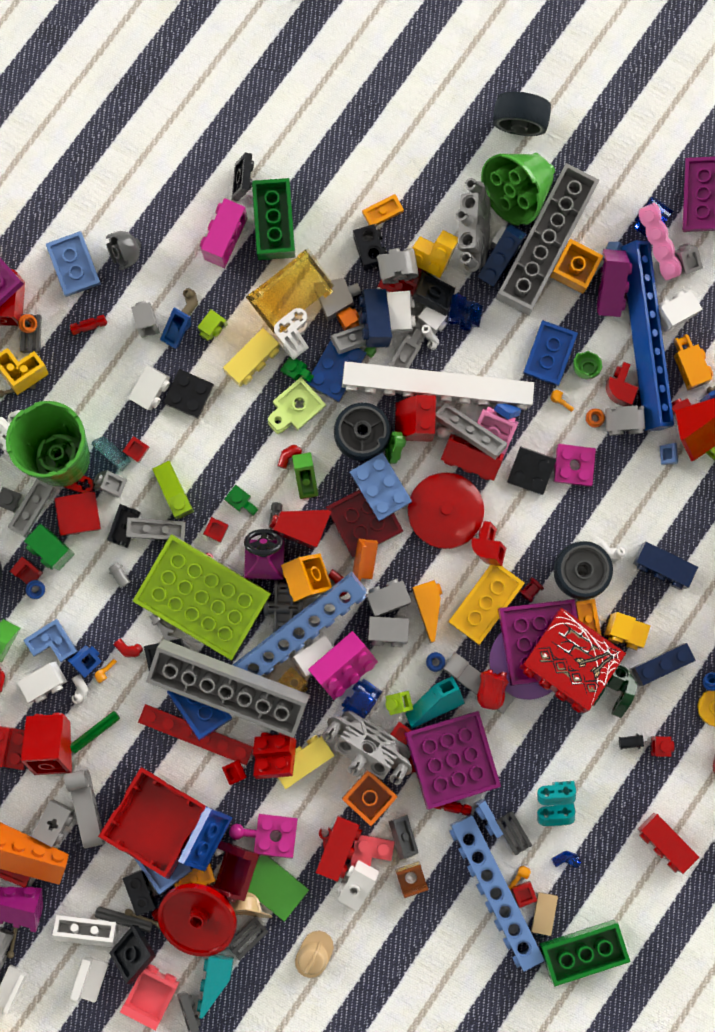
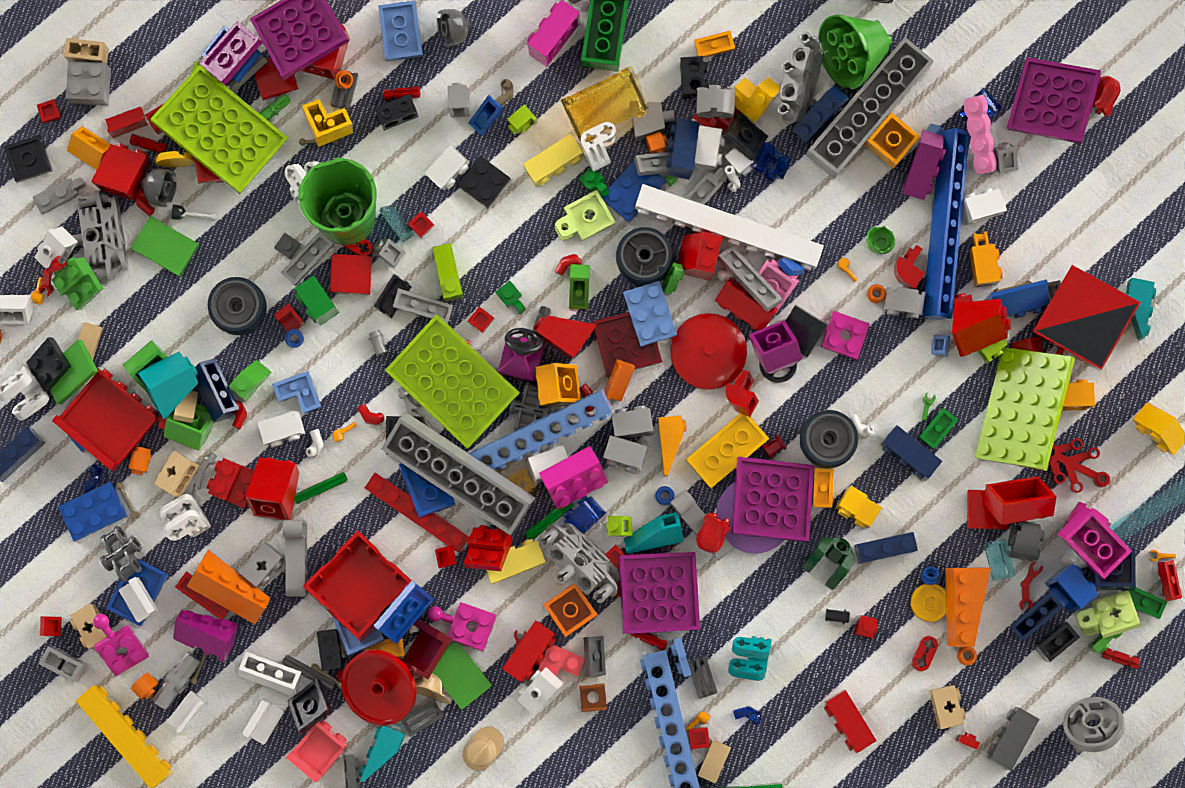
camera: 20 degrees right, 0 degrees up
(87, 344) = (396, 112): none -> black brick
(87, 666) = (334, 418): blue brick -> none
(325, 714) = (548, 520): none -> green axle
(513, 495) = (776, 351): none -> magenta piece
(550, 353) = (846, 220): blue plate -> none
(573, 661) = (796, 523): red panel -> none
(669, 515) = (927, 406): none -> bright green hand
(685, 535) = (938, 428): none -> green plate

